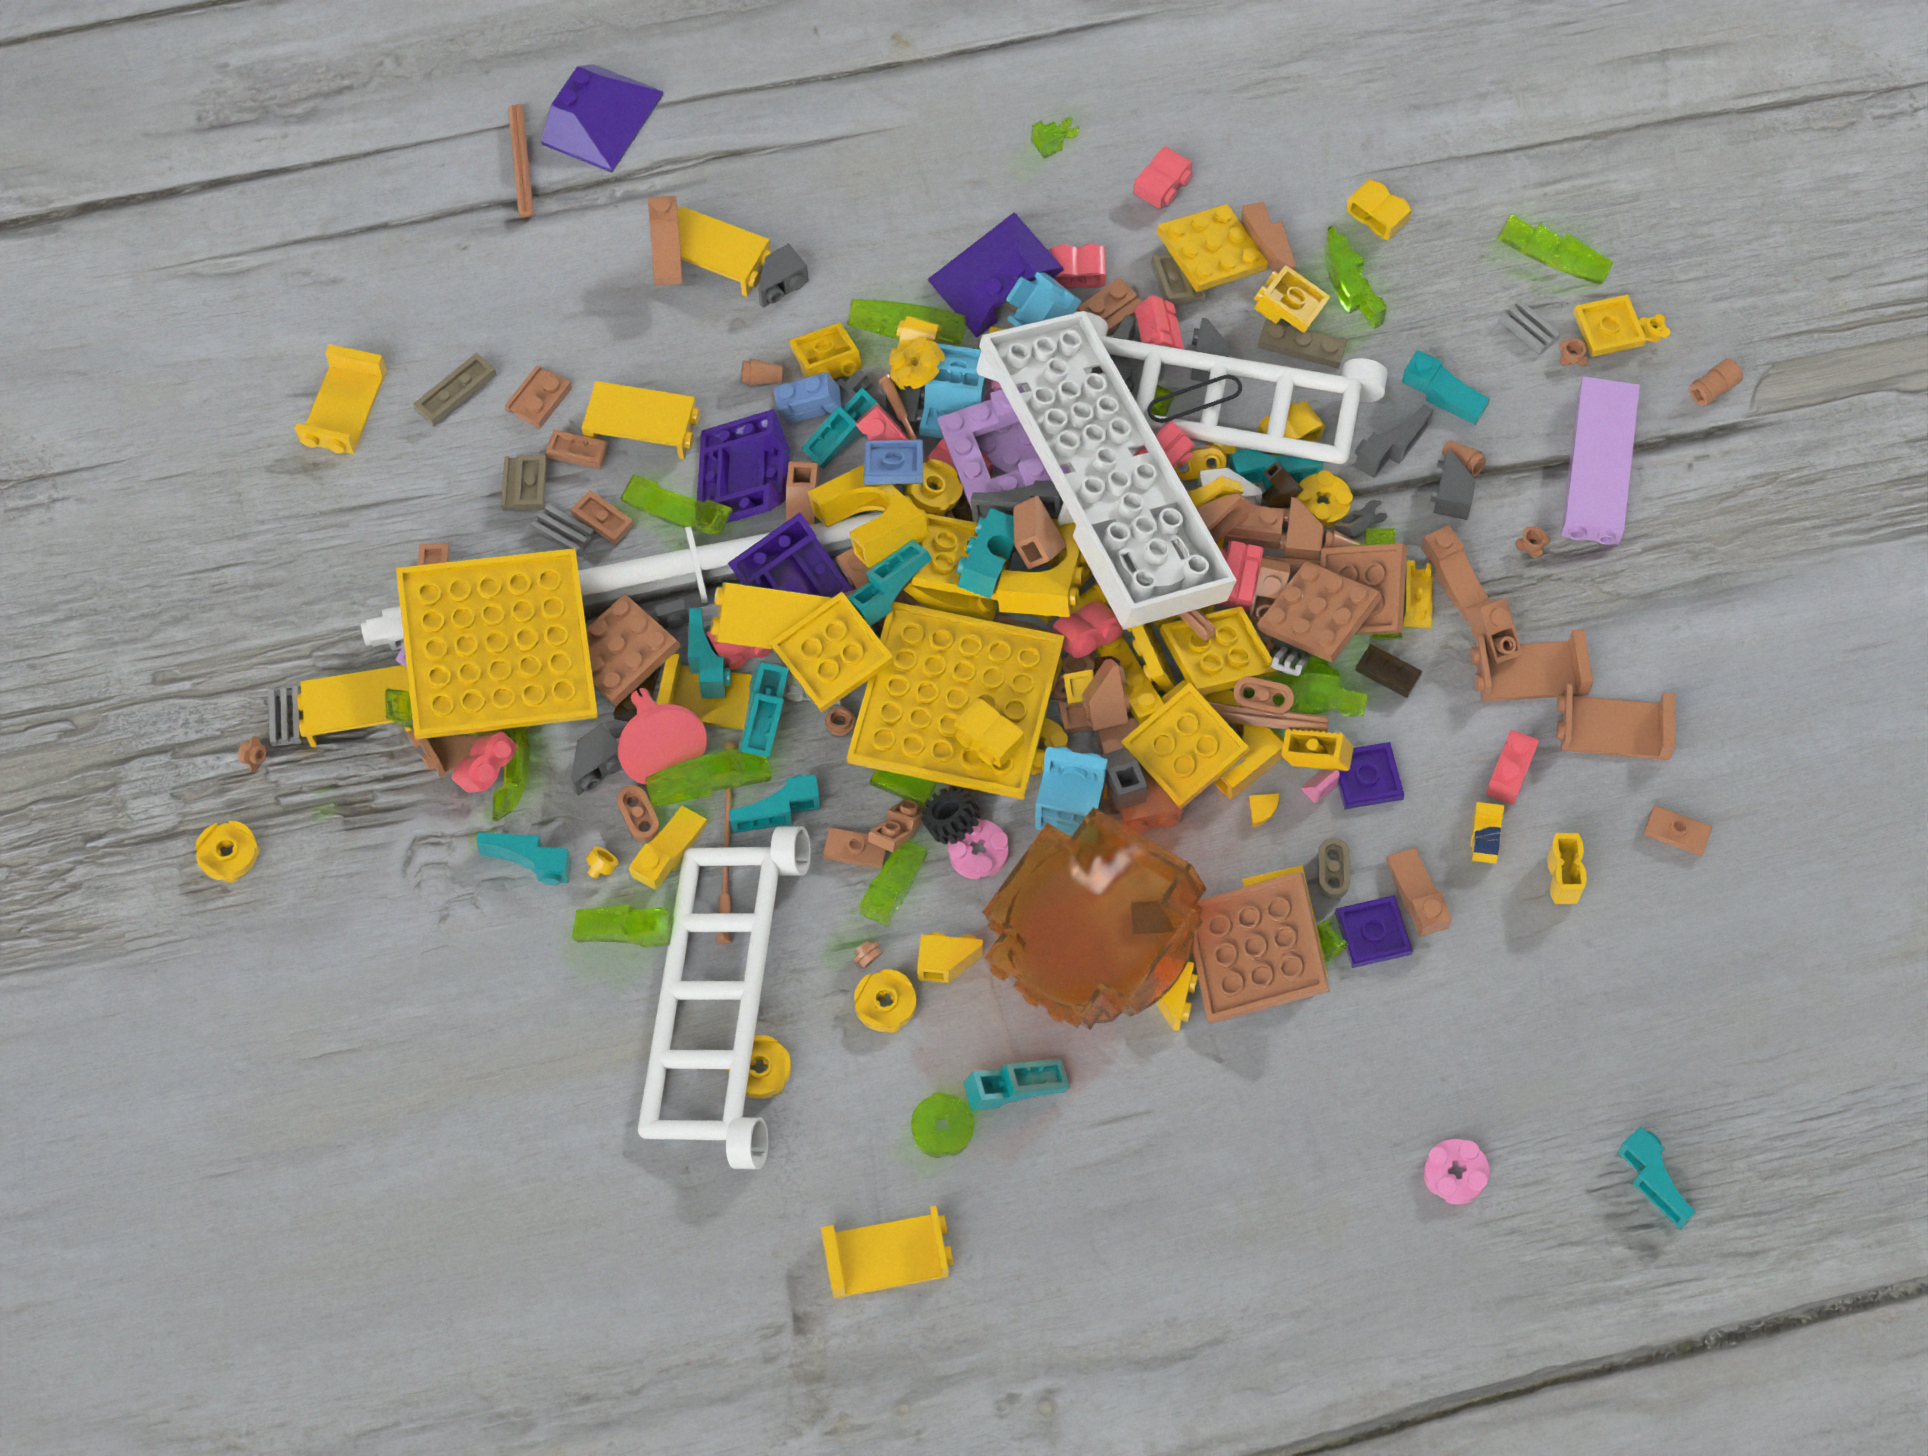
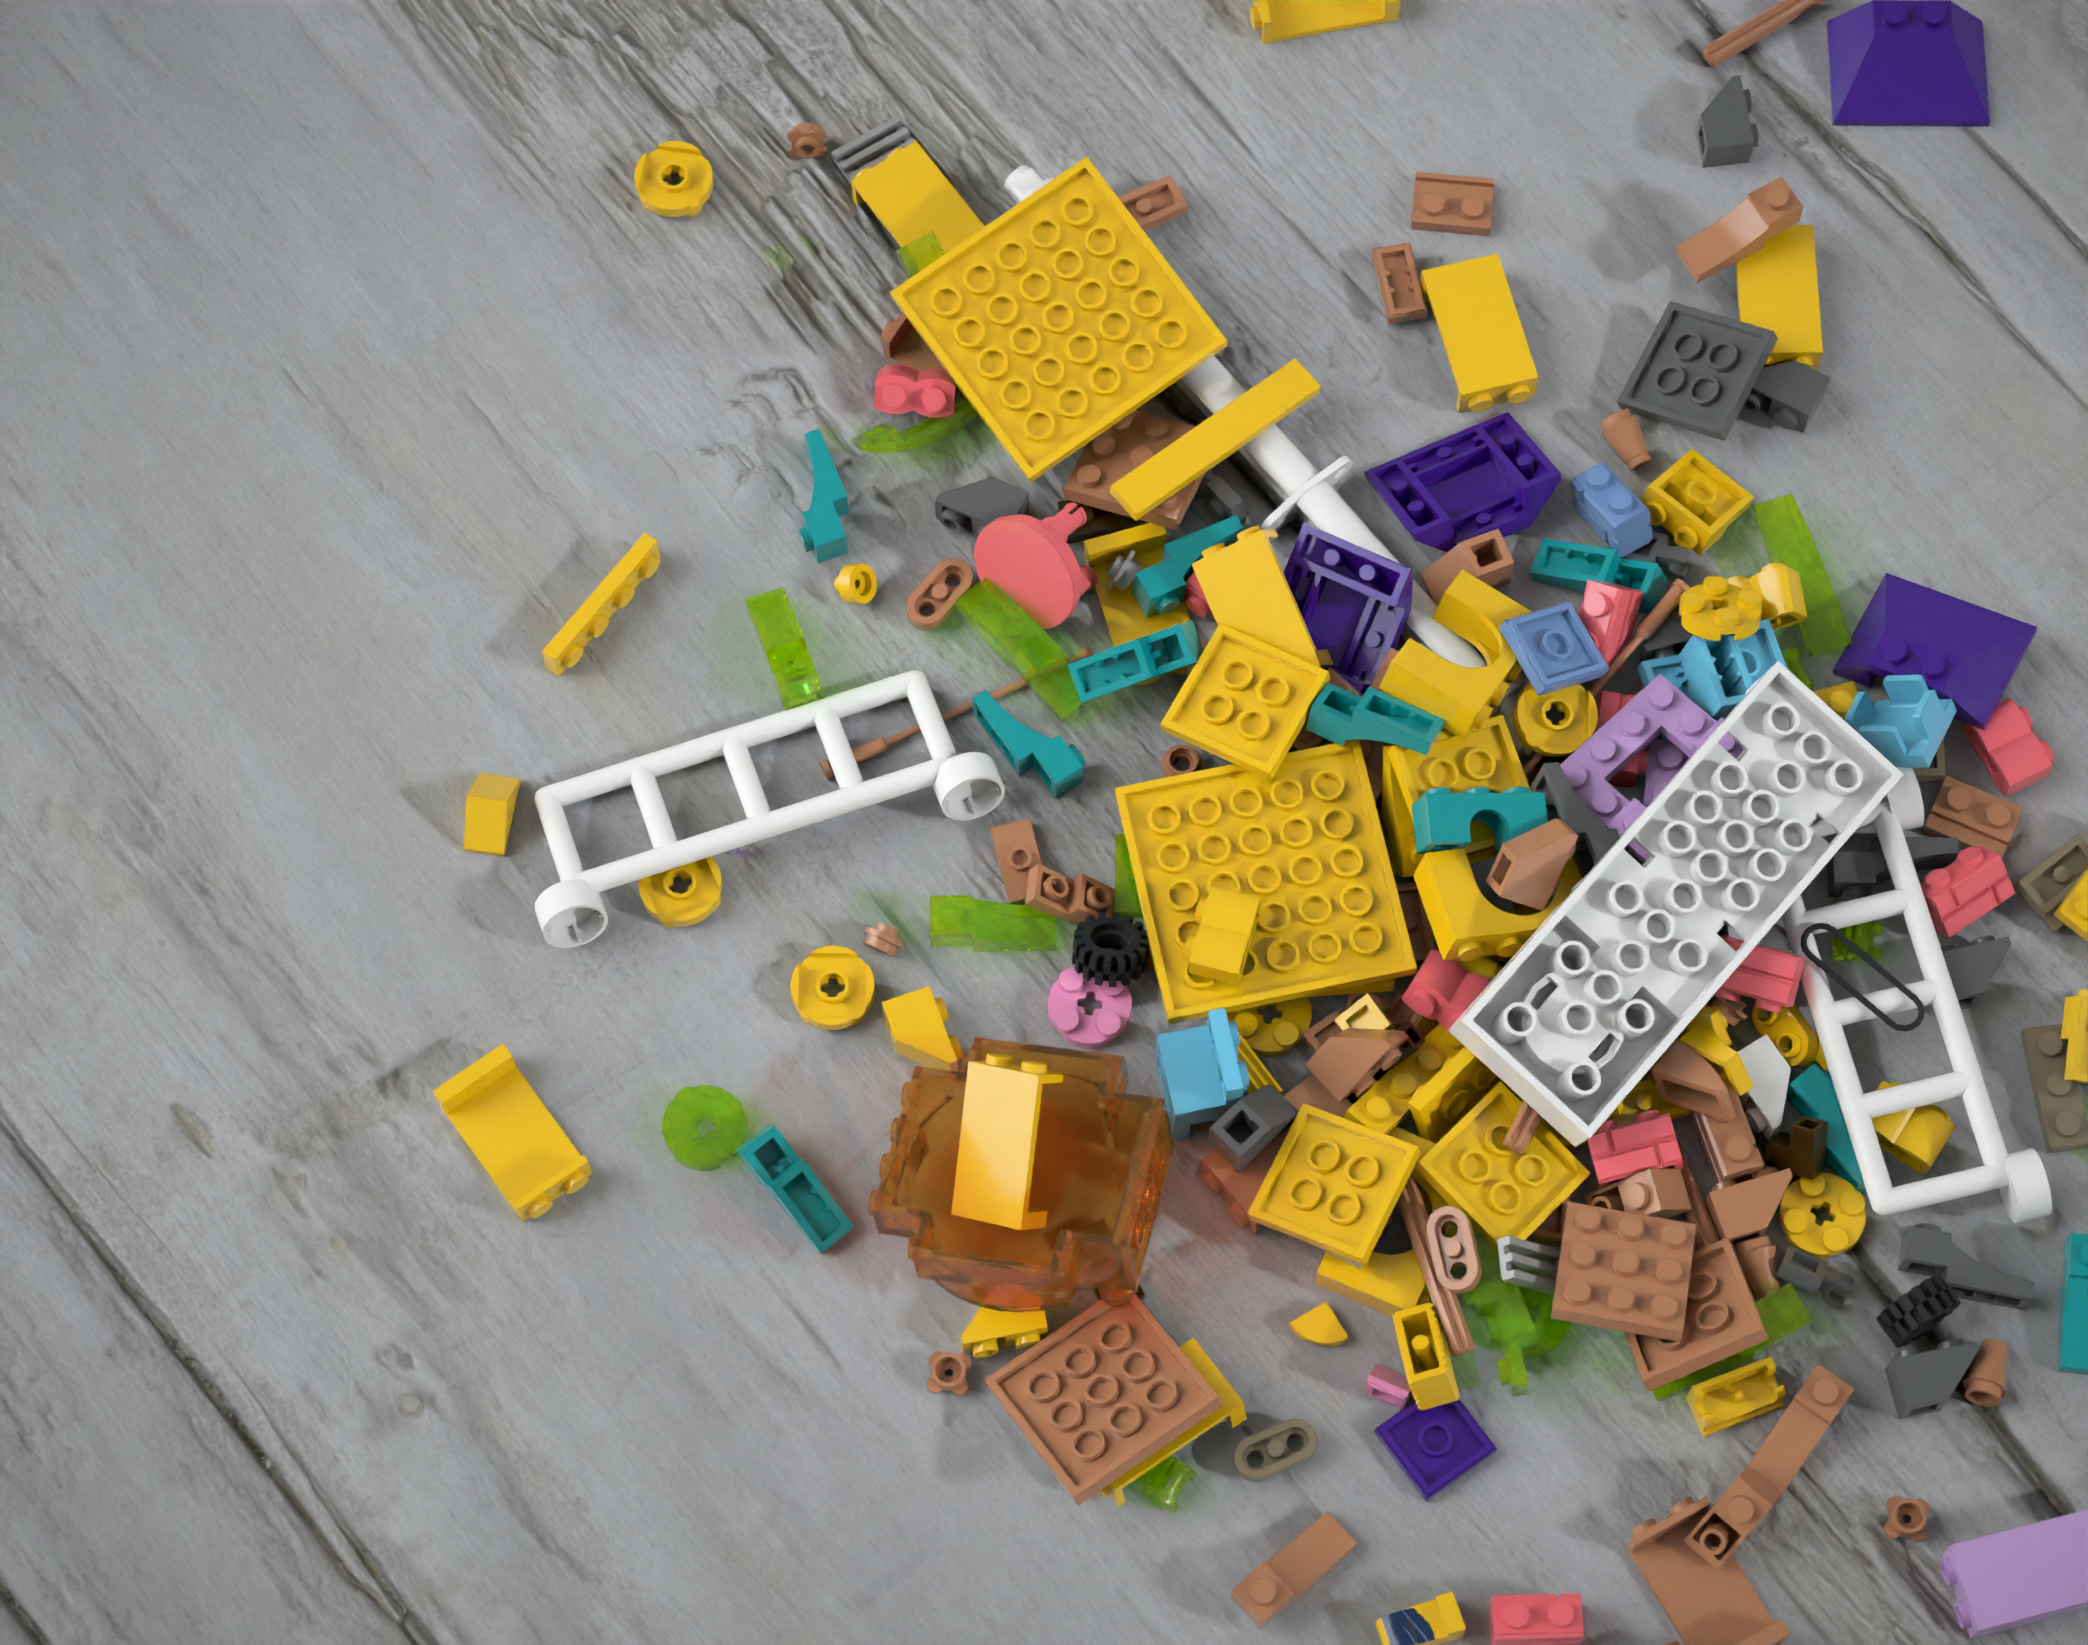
camera: 65 degrees right, 5 degrees up
(455, 389) = (1407, 105): dark tan plate -> none
(524, 482) = (1320, 247): dark tan plate -> none
(530, 1040) = (595, 612): none -> yellow plate
(544, 517) = (1284, 295): light grey tile -> none
(582, 224) = (1725, 127): none -> dark grey slope
(602, 517) = (1322, 352): nougat plate -> none
(634, 593) = (1215, 439): none -> yellow tile
(638, 1171) = (490, 813): none -> yellow slope
(667, 848) = (903, 647): yellow slope -> none
(674, 507) = (1377, 431): clear neon green slope -> none
(688, 694) = (1122, 571): none -> light grey plate
(741, 310) = (1697, 370): none -> dark grey plate
(1064, 926) = (1000, 1142): none -> yellow panel
(1190, 1034) = (957, 1364): none -> nougat plate
(1373, 931) = (1213, 1538): dark purple tile -> none
(1388, 670) = (1602, 1404): dark brown plate -> none
(1413, 472) = (1918, 1310): none -> black tyre

